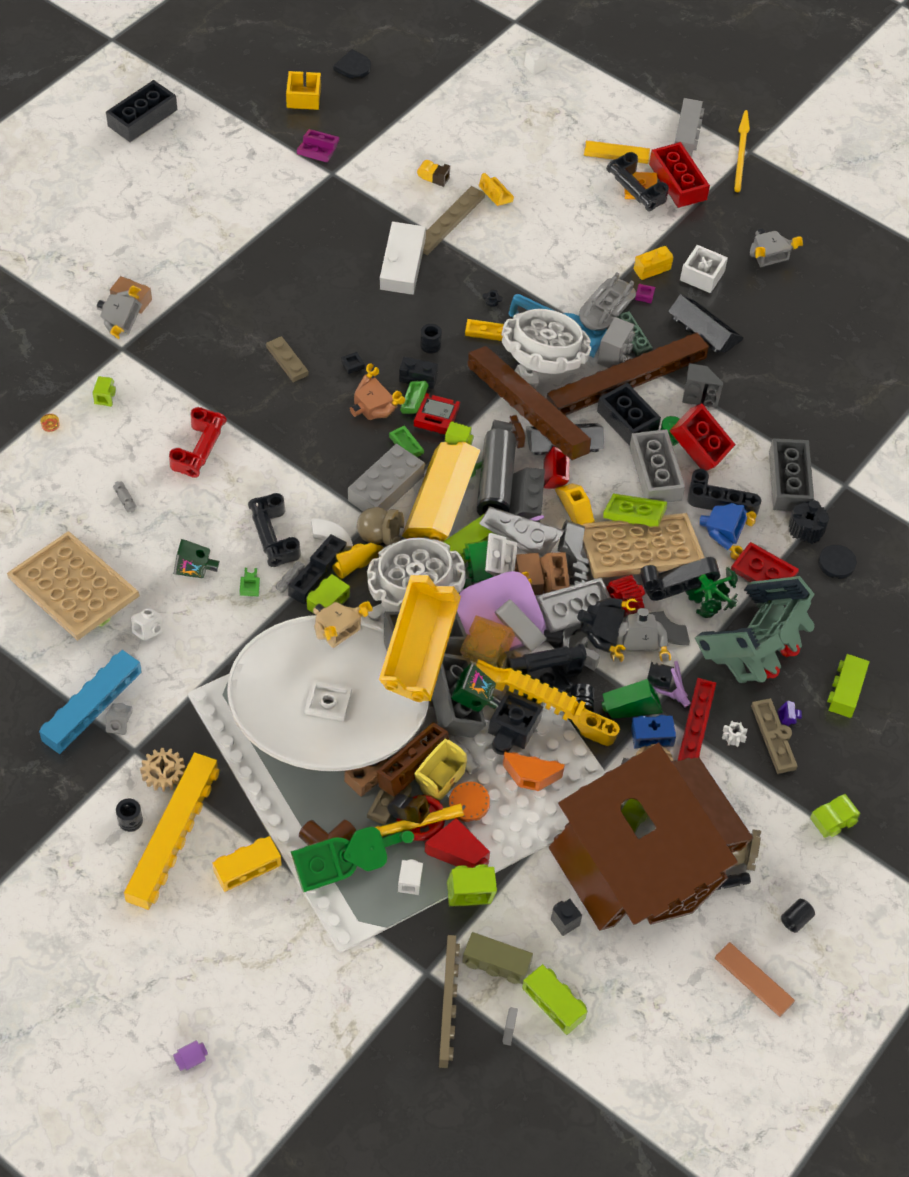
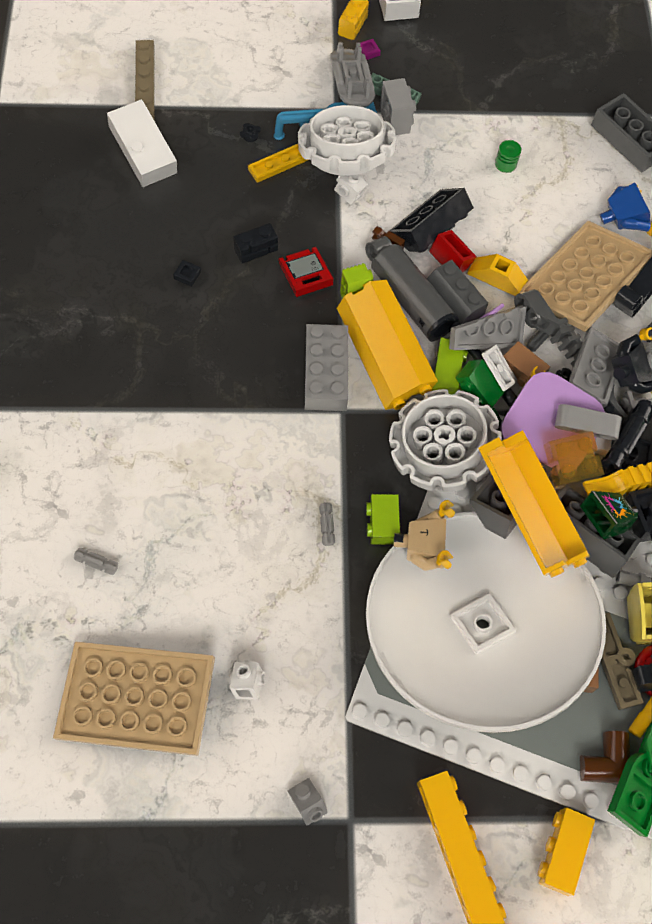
camera: 40 degrees left, 10 degrees up
(90, 701) = (266, 809): dark azure brick -> none
(129, 815) = (418, 899): black piece -> none
(152, 769) = (392, 811): tan gear -> none
(191, 462) = (126, 451): red piece -> none
(193, 560) = (229, 578): dark green torso -> none
(249, 584) = (300, 561): bright green plate -> none
(268, 508) = (242, 477): black piece -> none
(287, 359) = (122, 309): dark tan plate -> none
(317, 568) = (344, 498): black slope -> none
(323, 528) = (323, 452): white tile -> none
(357, 557) = (369, 467): yellow panel -> none
(373, 399) = (240, 295): nougat torso -> none
(379, 526) = (364, 415): dark tan tile -> none
(406, 440) = (302, 315): bright green plate -> none
(409, 760) = (619, 624): reddish brown brick -> none
(414, 397) = (272, 269): bright green plate -> none
(431, 338) = (236, 203): black piece -> none
(434, 172) = (91, 47): leg -> none
(495, 190) = (161, 31): yellow bracket -> none
(529, 403) = (385, 206): reddish brown brick -> none
(554, 571) = (551, 349): medium nougat brick -> none
(626, 589) = (621, 324): red brick -> none
(627, 412) = (464, 163): black brick -> none
(633, 371) = (425, 133): reddish brown brick -> none
(635, 510) = (552, 245): lime plate -> none
(657, 466) = (530, 195): light grey brick -> none
(702, 386) = (497, 100): dark grey slope -> none
(702, 437) = (545, 144): red brick -> none
(705, 323) = (444, 46): slope -> none
(708, 496) = (585, 196): black beam -> none

